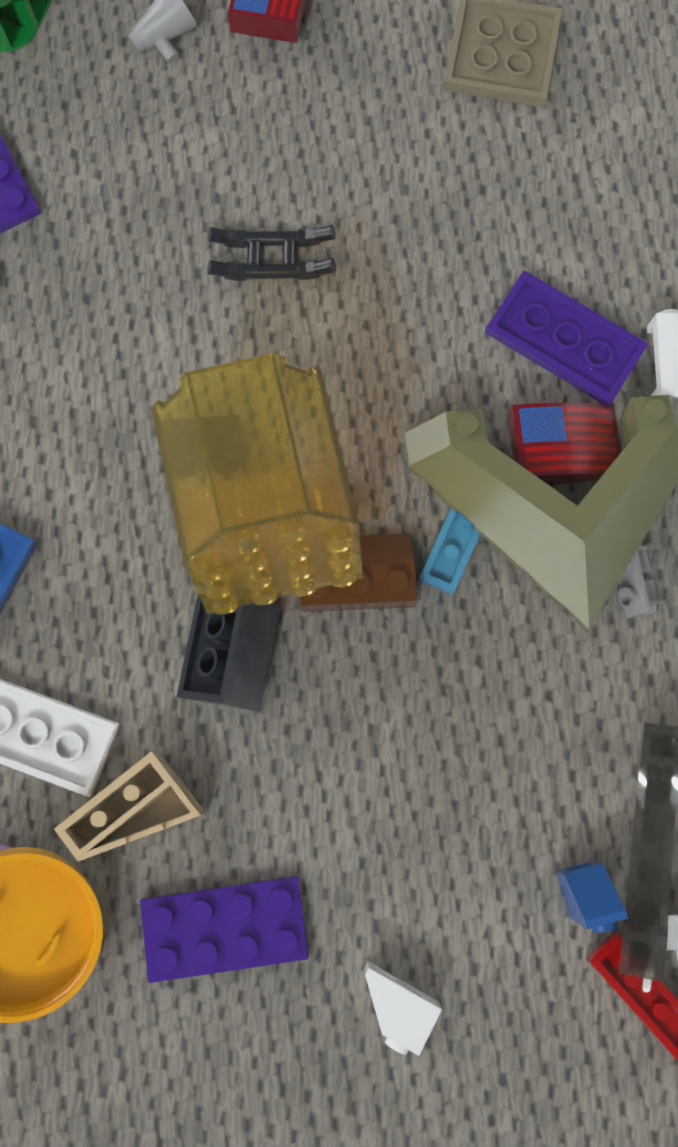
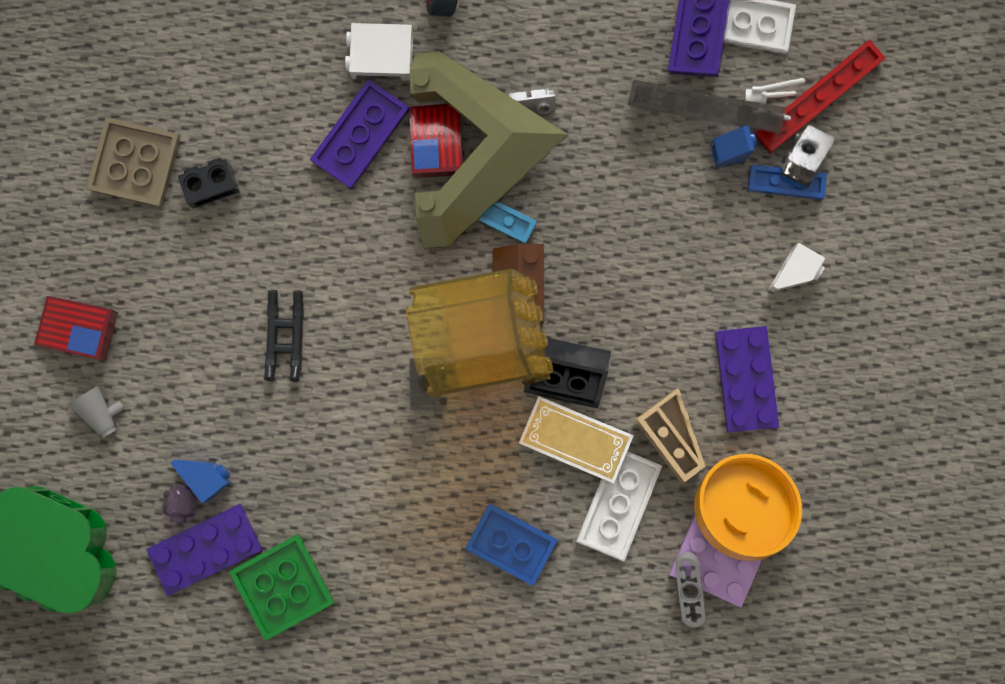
camera: 85 degrees left, 5 degrees up
(37, 130) = (179, 503): none -> clear purple head
(73, 157) = (203, 478): none -> blue slope
(126, 665) = (576, 439): none -> pearl gold tile
(474, 144) = (210, 190): none -> black brick
(541, 989) = (770, 181): none -> blue plate
(587, 1022) = (807, 155): none -> clear smoke brick

